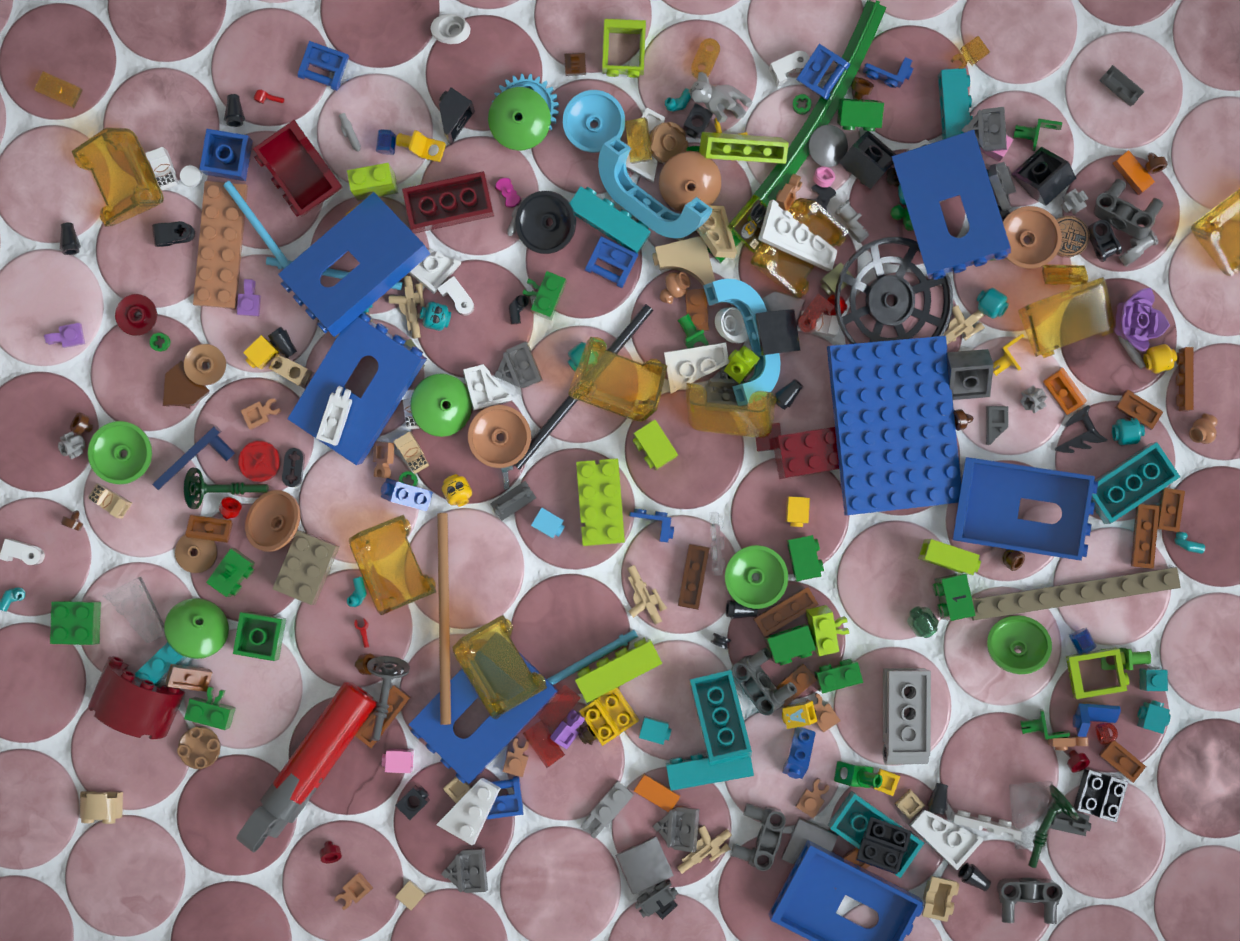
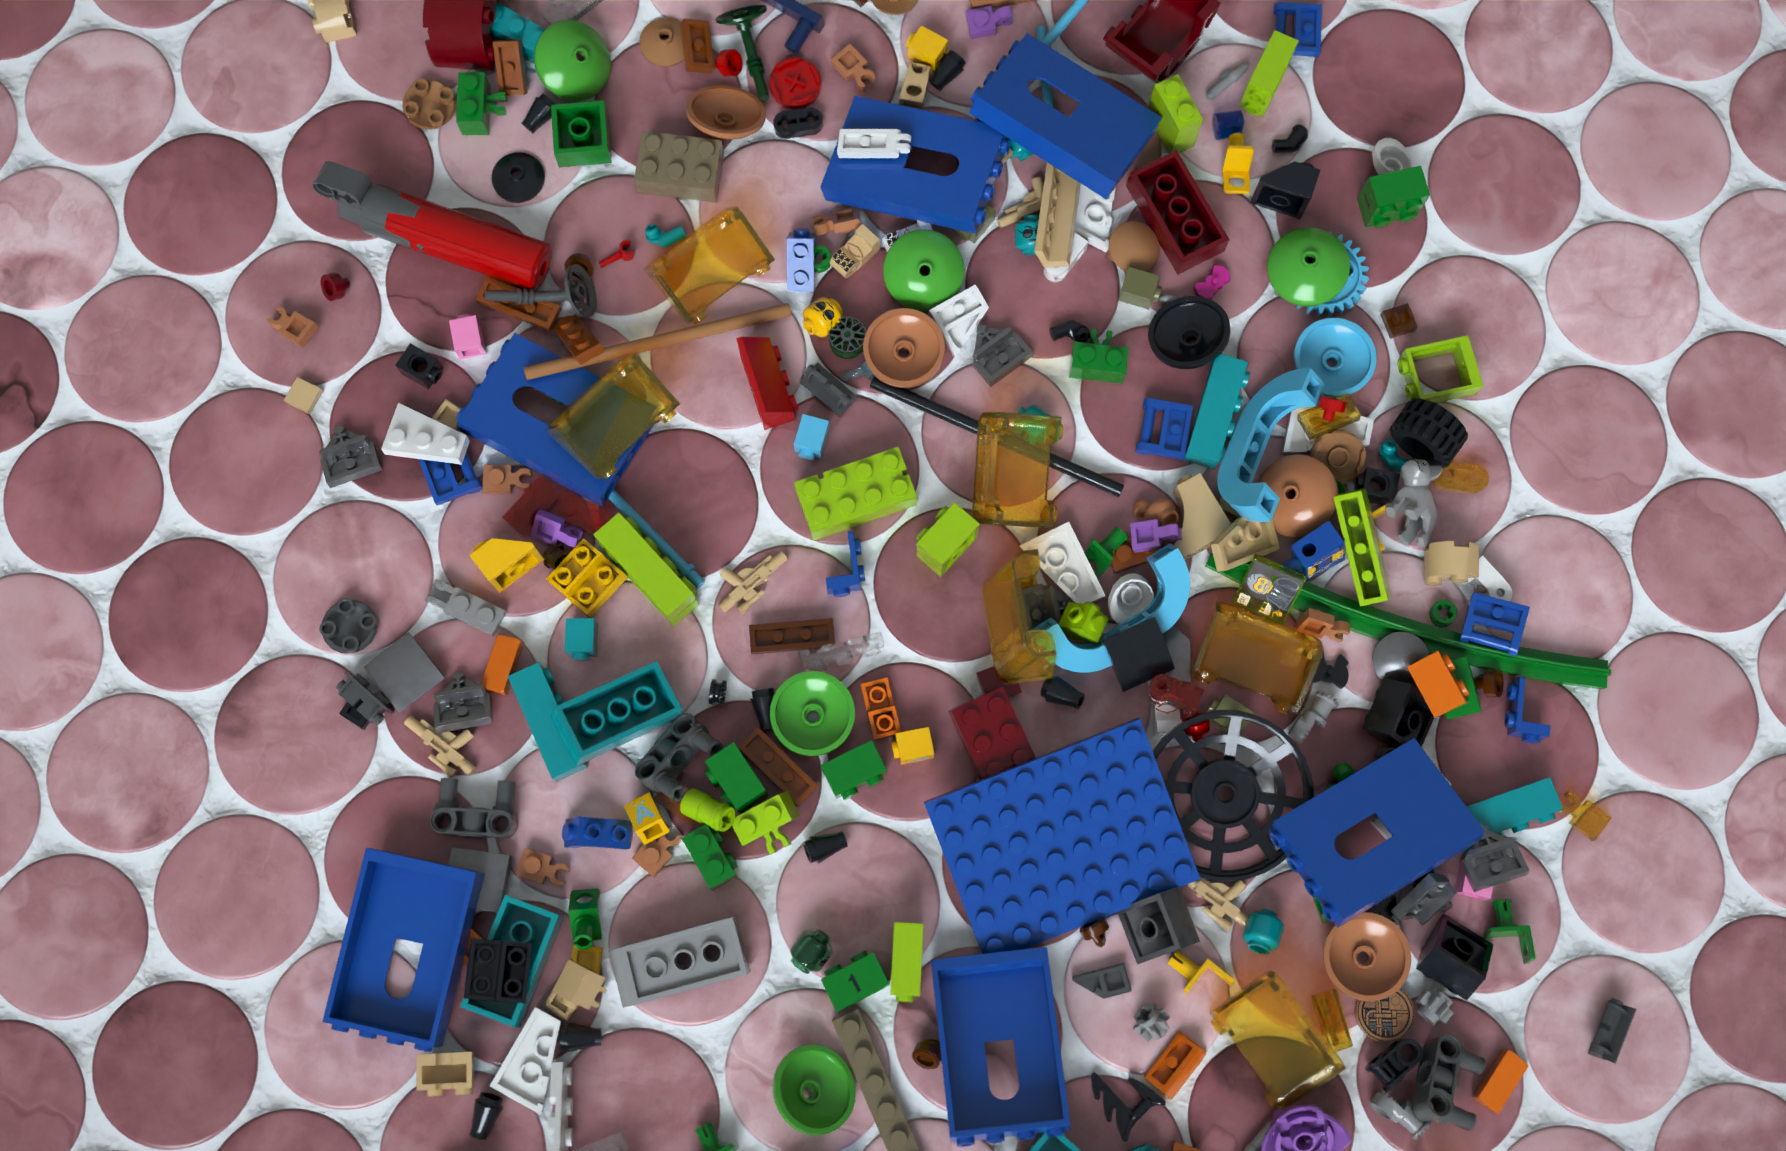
camera: 75 degrees right, 10 degrees down
(231, 572) = (650, 84): green brick -> none
(231, 664) = (538, 113): none -> black cone
(288, 693) = (522, 187): none -> black dish
(357, 99) = (1268, 73): none -> lime window
(413, 96) = (1293, 142): none -> black arm
(428, 678) = (578, 338): none -> dark orange plate
(432, 294) = (1057, 218): none -> tan fence
(465, 242) = (1133, 246): none -> medium nougat dish
(477, 475) = (847, 338): none -> dark green wheel
(481, 38) = (1393, 197): none -> green brick
(496, 544) = (767, 381): none -> red slope
(499, 247) = (1140, 288): none -> olive brick
(584, 775) = (505, 560): none -> yellow slope
(599, 898) = (349, 626): none -> dark grey dish
(634, 137) = (1331, 406): none -> red tile
(671, 72) = (1428, 432): none -> black tyre
(692, 298) = (1149, 535): none -> medium lavender plate
(733, 174) = (1317, 551): none -> blue torso
(762, 526) = (880, 708): none -> orange slope
(769, 88) = (1451, 561): none -> tan cylinder
(790, 236) = (1266, 645): white wing -> none
(808, 670) = (707, 810): none -> lime piece
(824, 176) = (1358, 665): bright pink tile -> none
(851, 593) = (823, 846): none -> black cone
(857, 126) = (1438, 683): none -> orange brick
(906, 791) = (579, 986): none -> tan brick
(1155, 163) = (1522, 1107): reddish brown tile -> none

